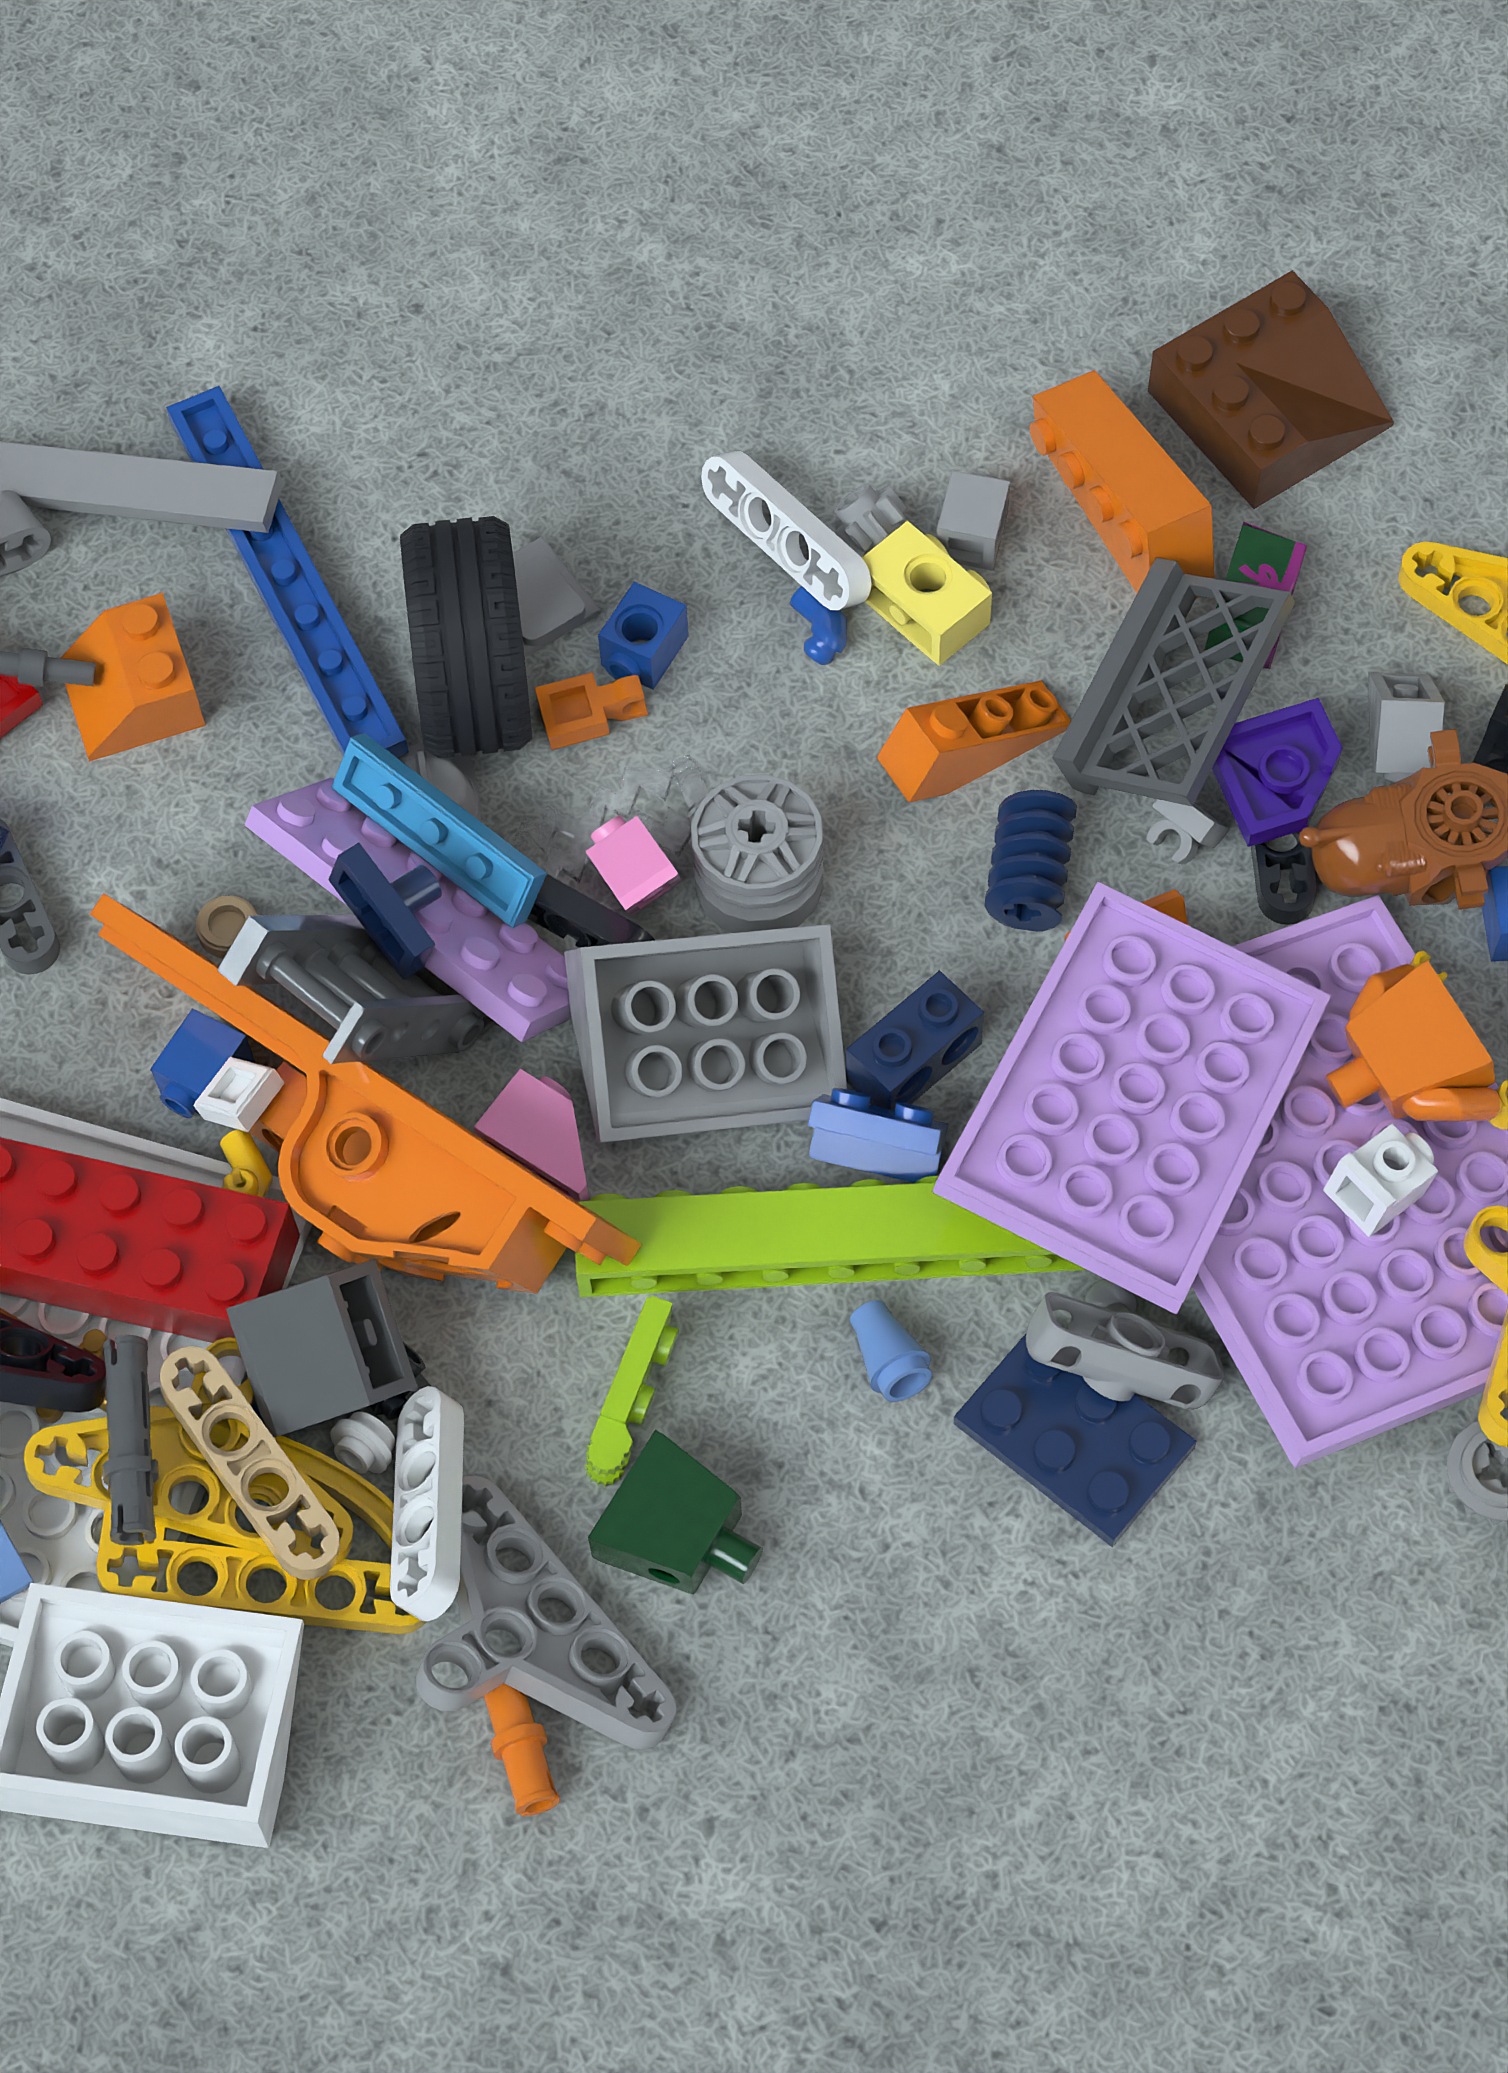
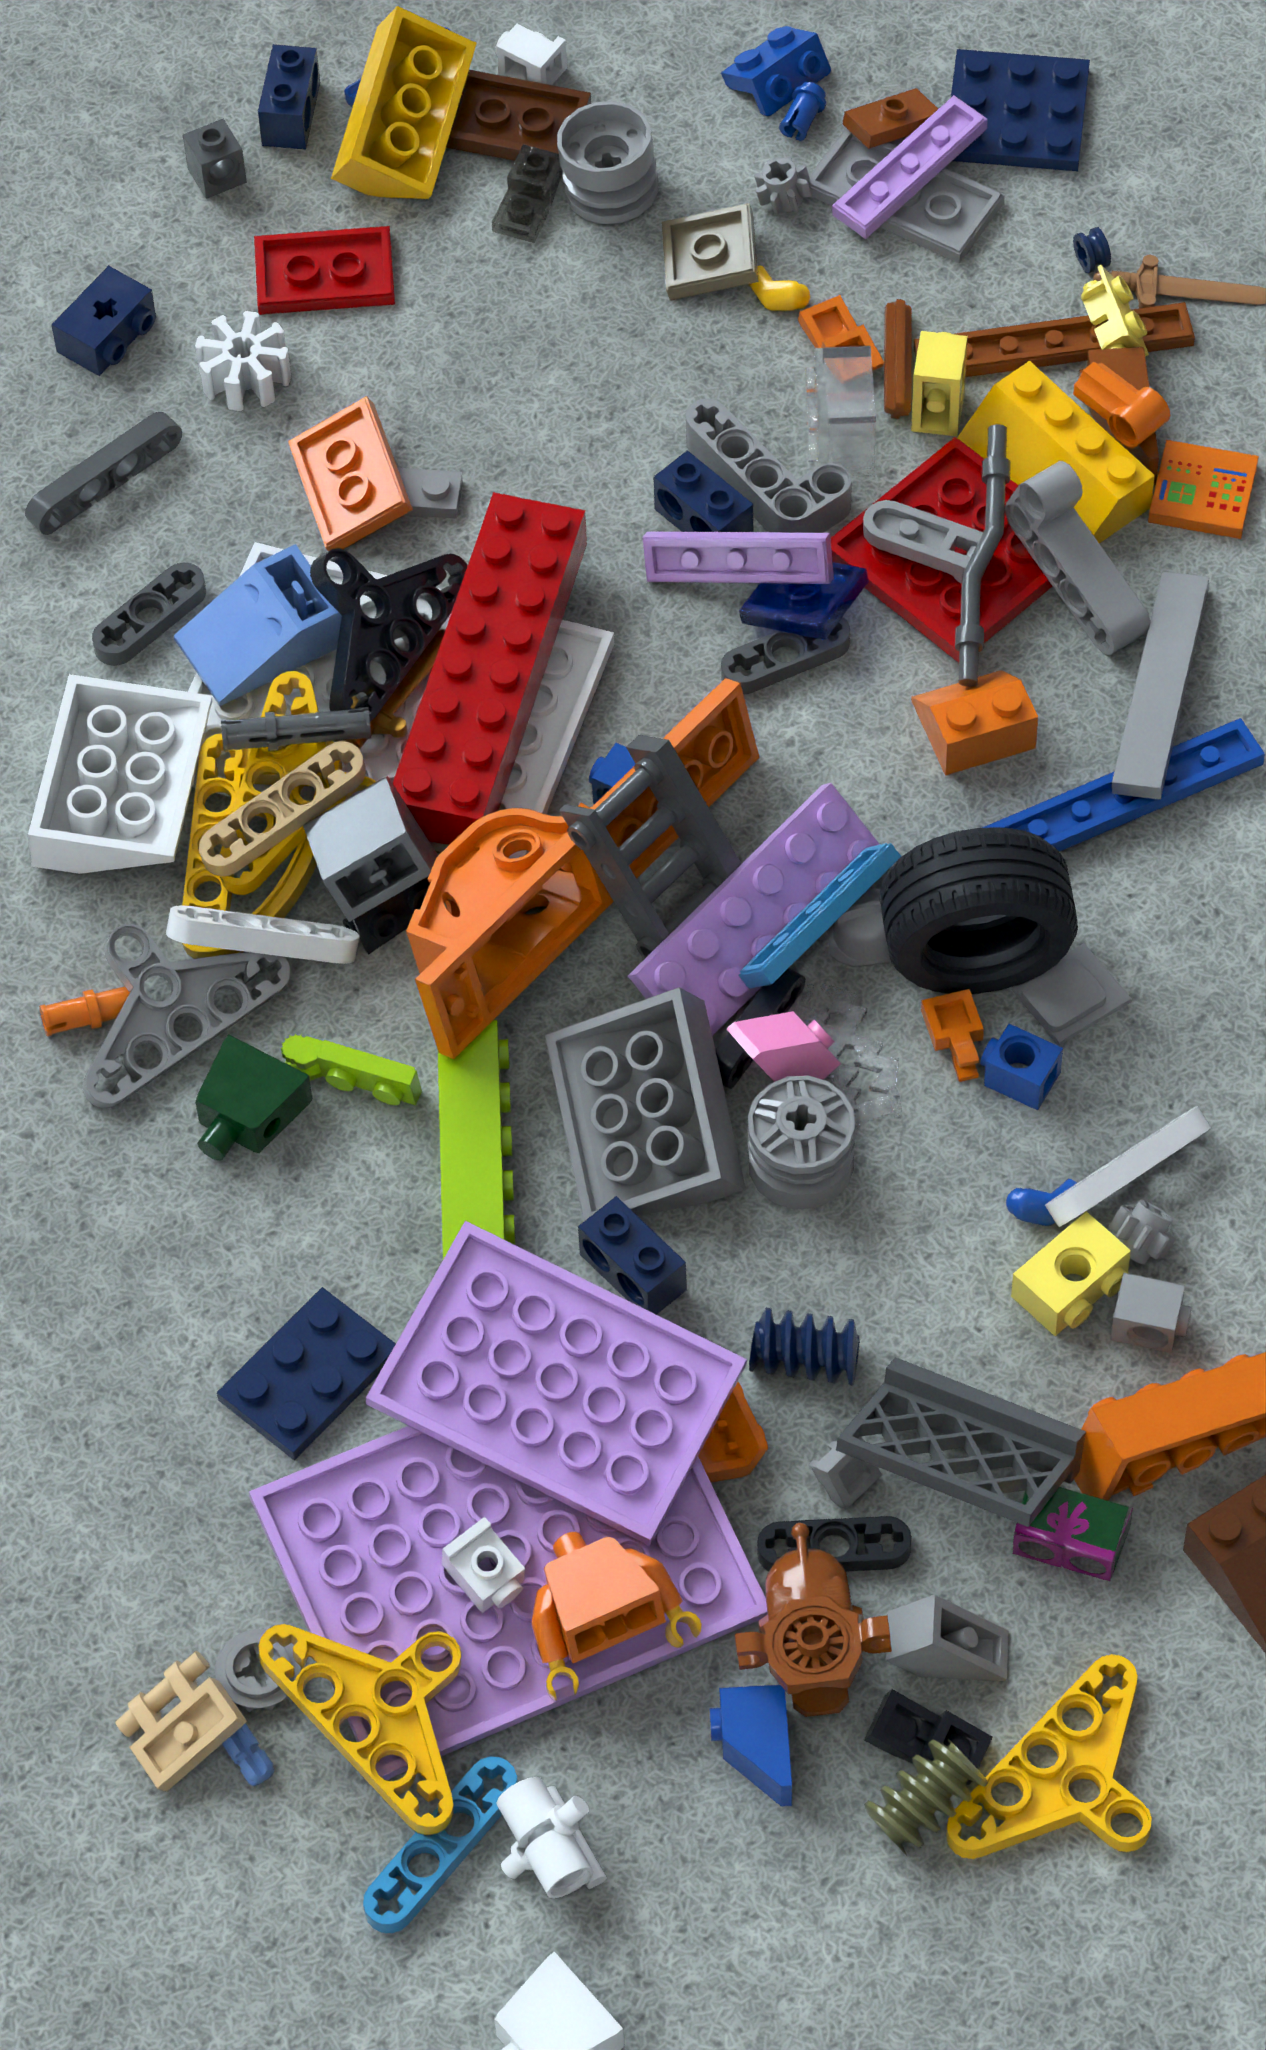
camera: 90 degrees right, 5 degrees down
(221, 923) = (757, 799): tan tile -> none
(239, 1094) = (583, 790): white tile -> none
(248, 1166) = (508, 798): yellow arm -> none
(363, 1443) = (318, 904): white plate -> none
(388, 907) = (728, 868): dark blue tile -> none
(538, 1129) = (558, 999): bright pink slope -> none
(876, 1139) = (554, 1216): bracket -> none
(891, 1356) = (373, 1244): medium blue cone -> none
(964, 737) = (929, 1310): orange slope -> none
(1122, 1350) = (348, 1361): light grey piece -> none
(1277, 769) = (884, 1528): dark purple plate -> none

